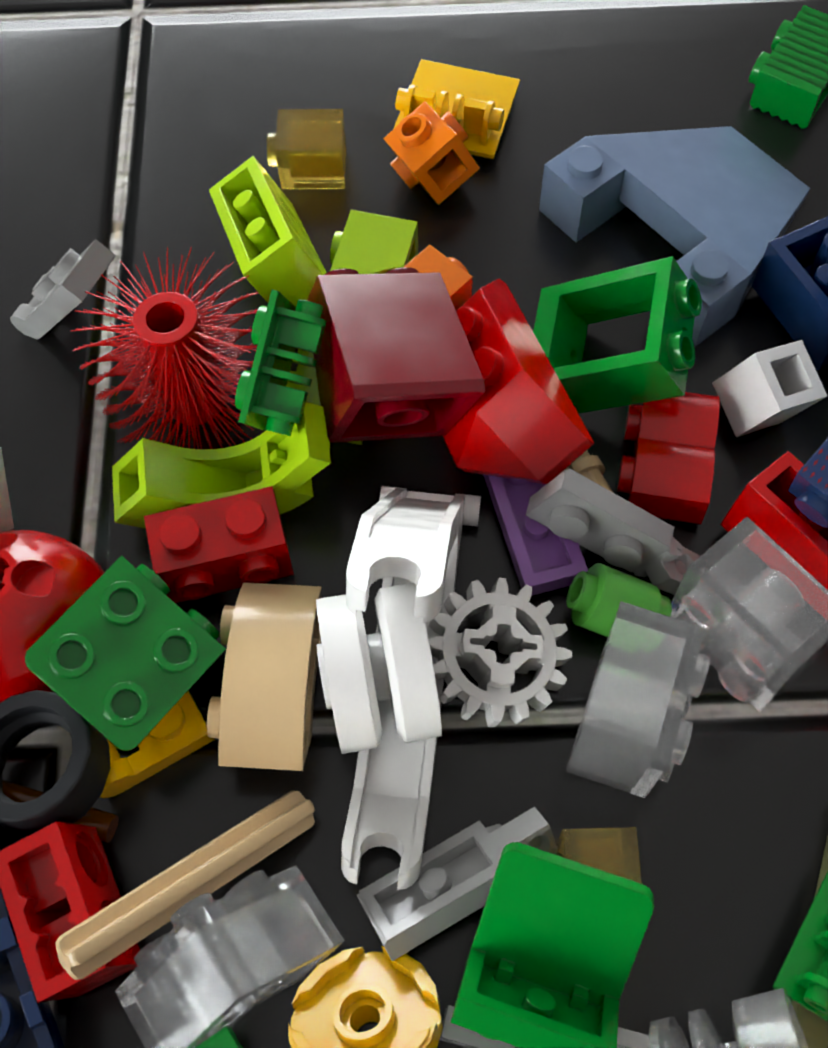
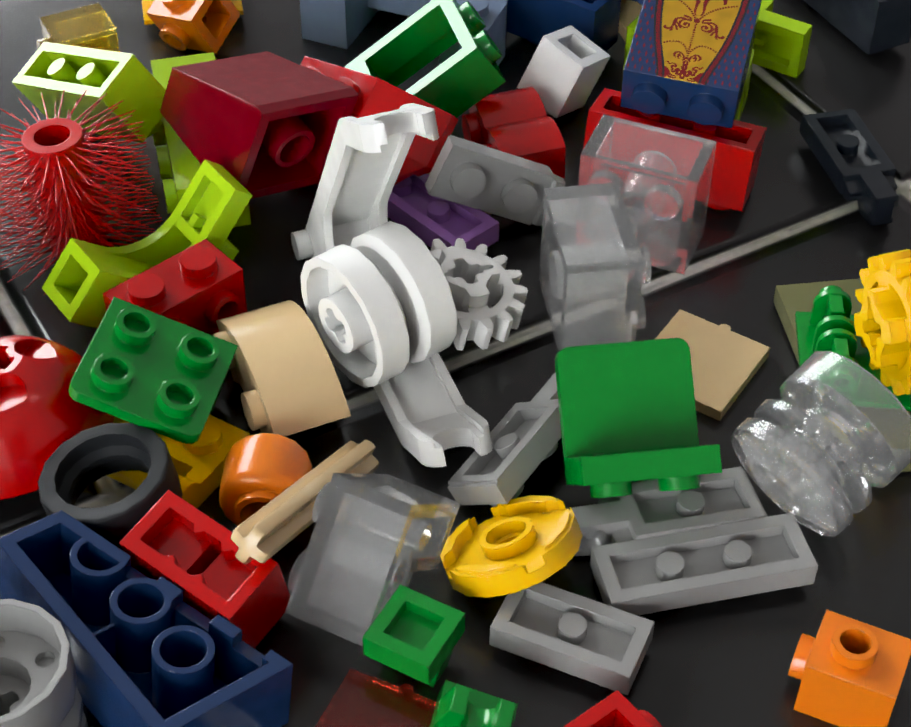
camera: 30 degrees left, 20 degrees down
(182, 811) = (259, 471): none -> orange head
(278, 333) = (176, 135): green hinge -> none
(598, 592) = (519, 231): bright green brick -> none
(706, 849) = (719, 360): none -> tan piece

